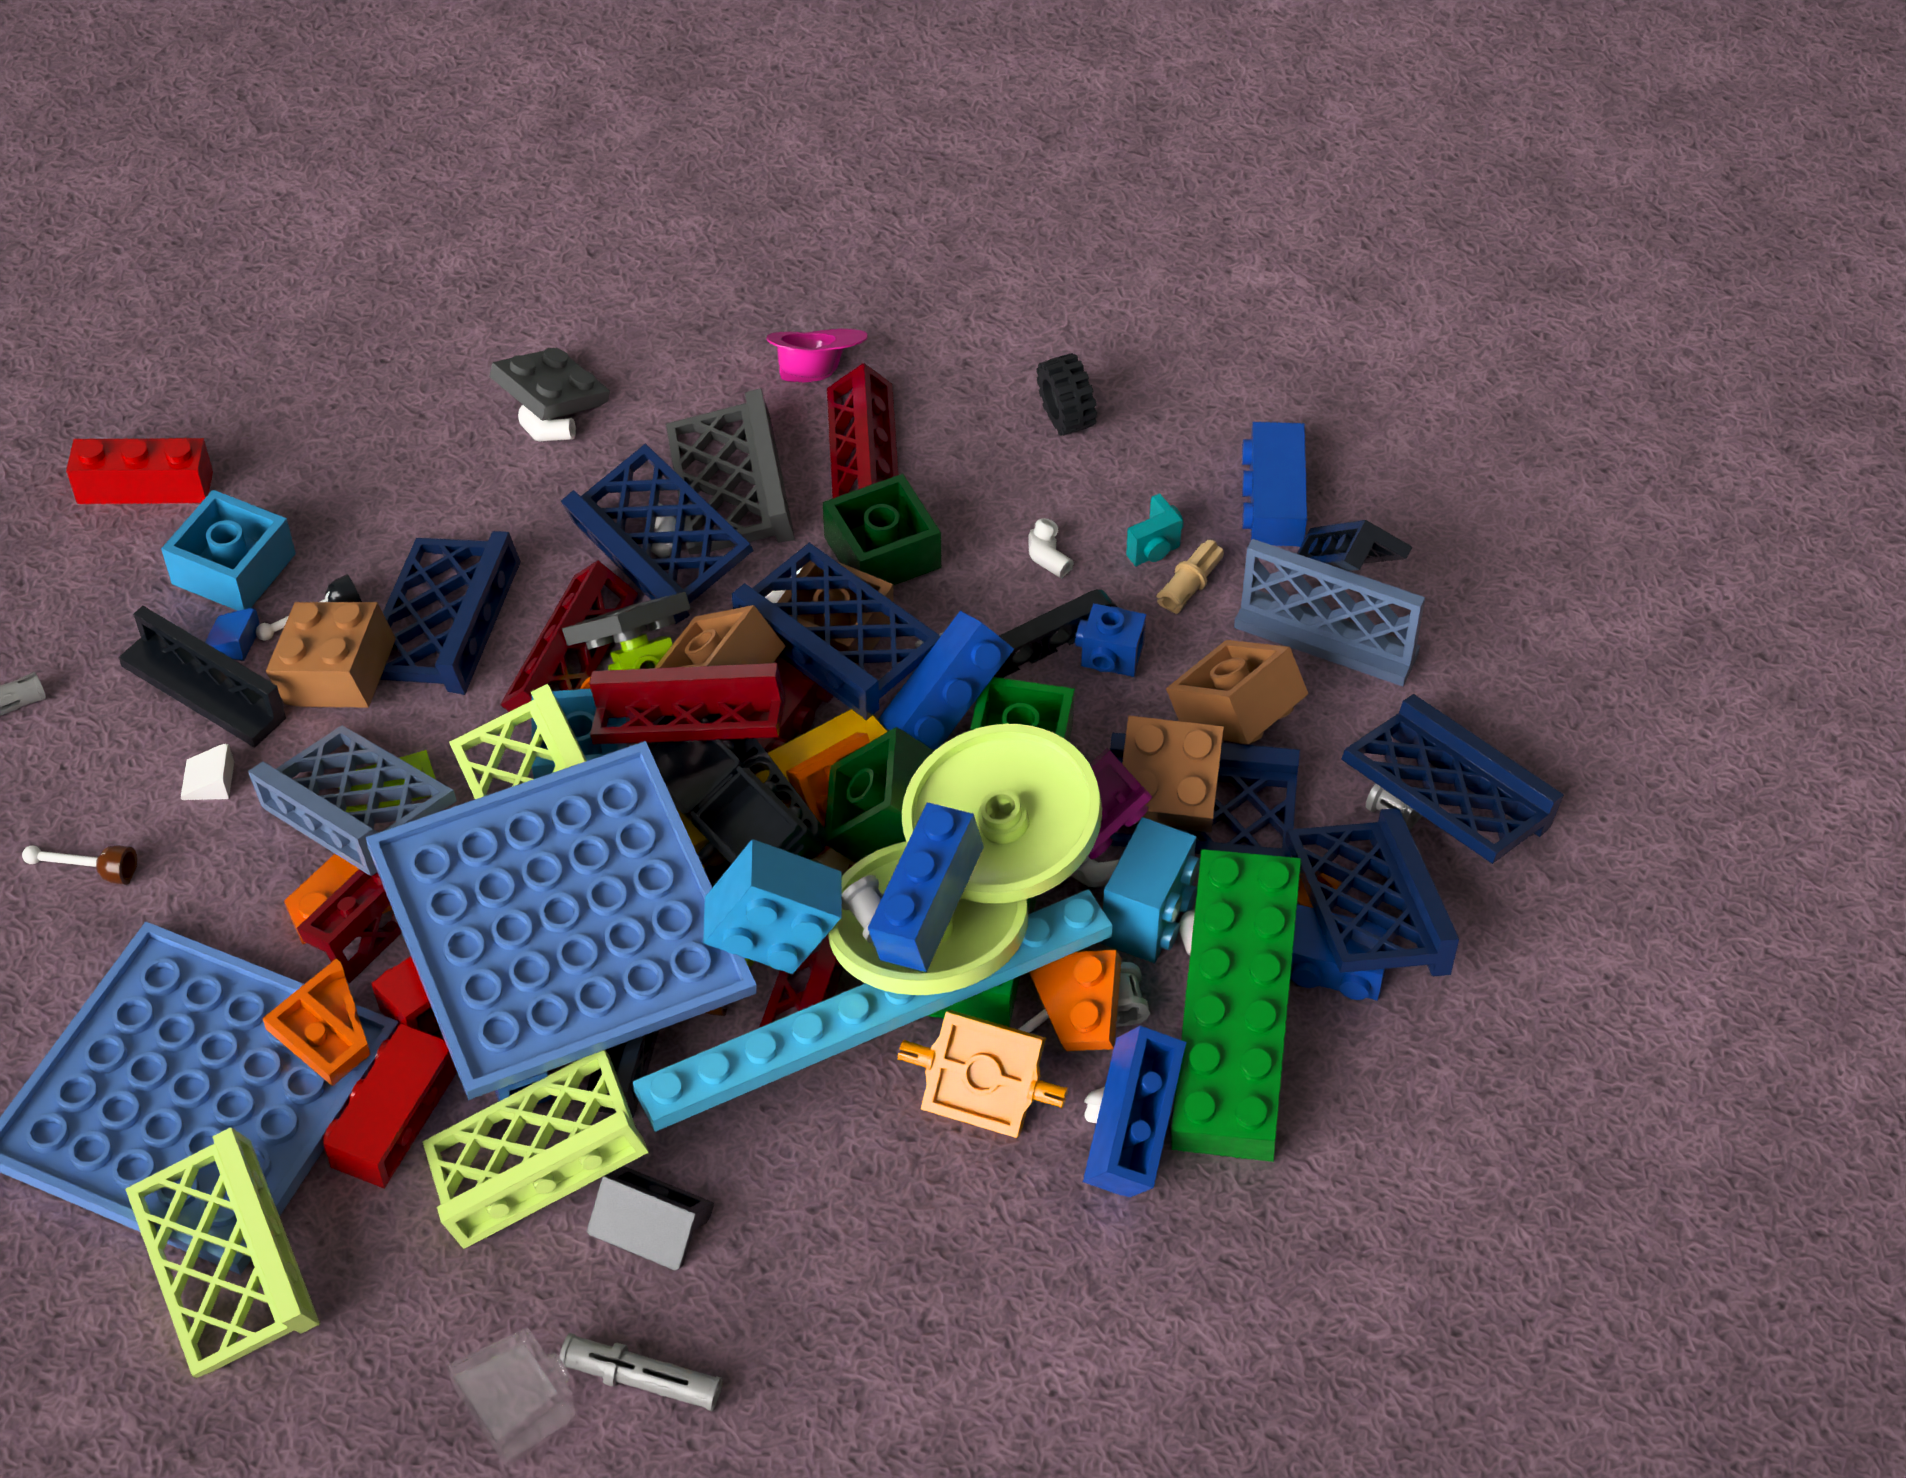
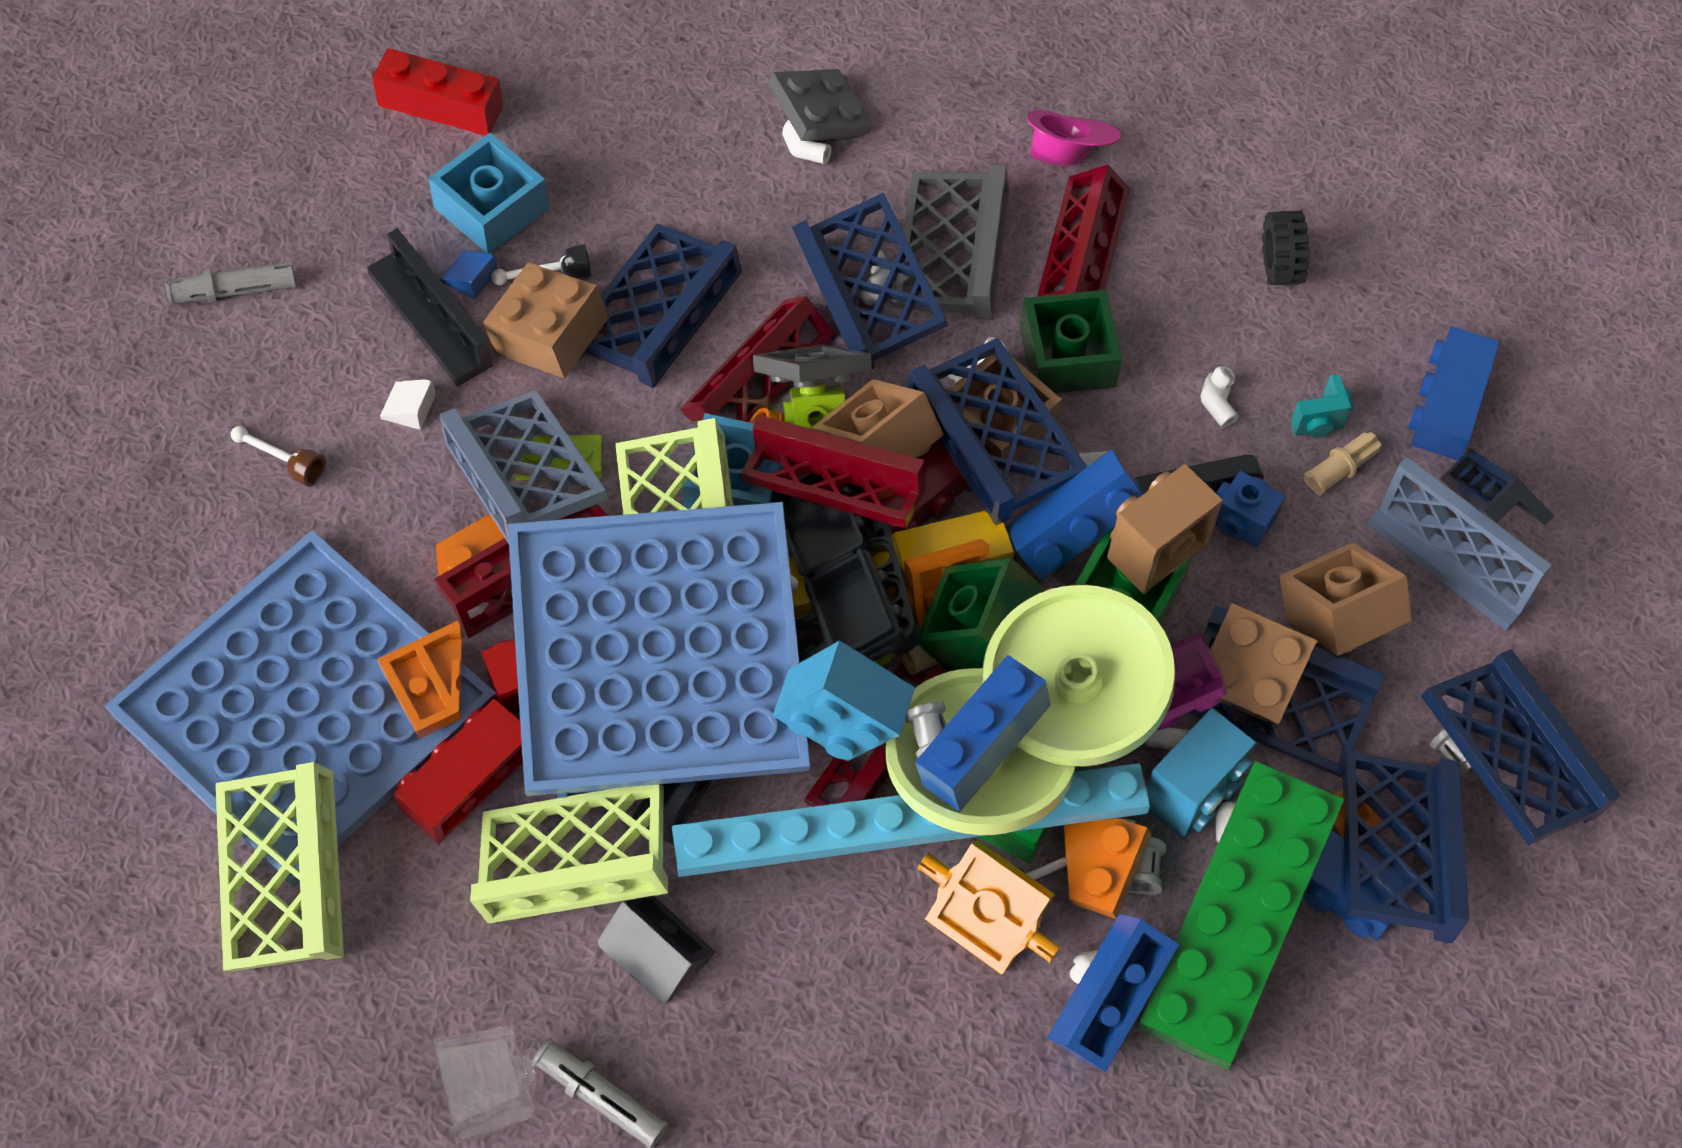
camera: 15 degrees right, 10 degrees up
(1037, 663) = (1163, 527): none -> medium nougat brick

